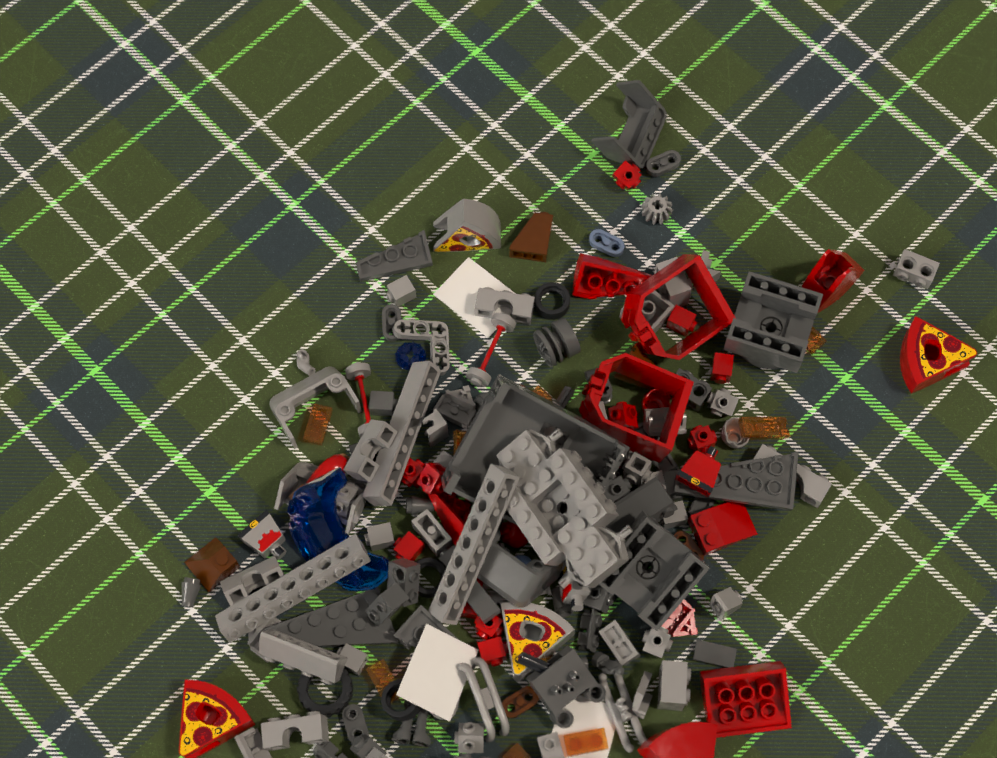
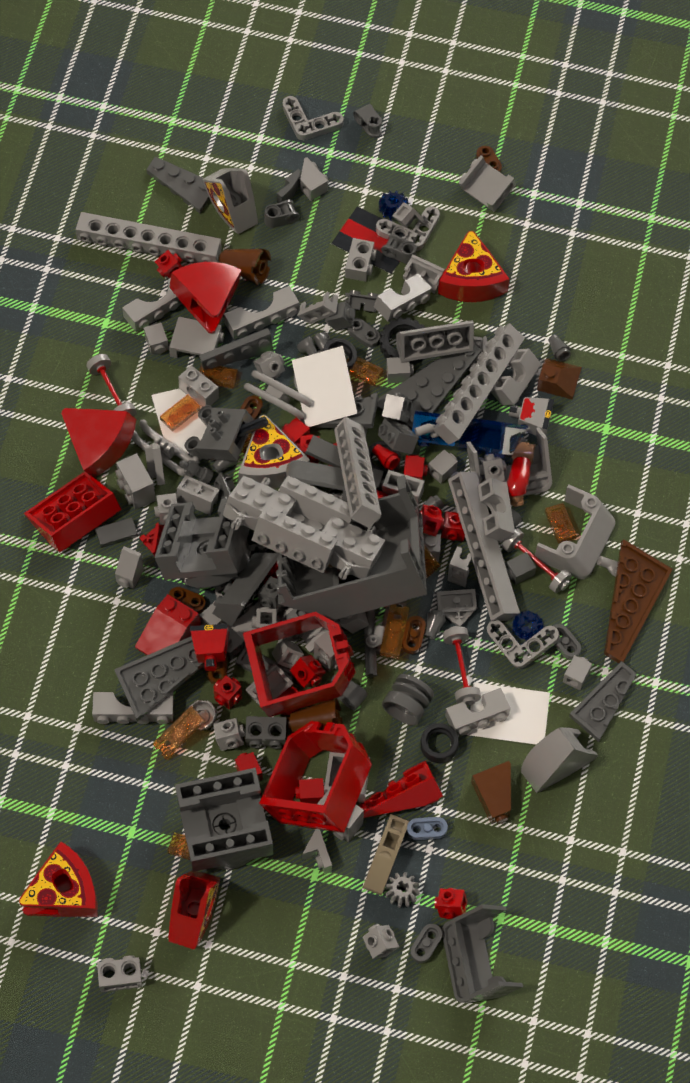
camera: 145 degrees right, 5 degrees down
(300, 329) = (635, 591): none -> reddish brown wing
(373, 567) = (425, 429): none -> light grey arm
(428, 567) = (387, 457): none -> red cone
(652, 237) = (385, 854): none -> dark tan slope
(698, 179) = (380, 941): none -> light grey brick

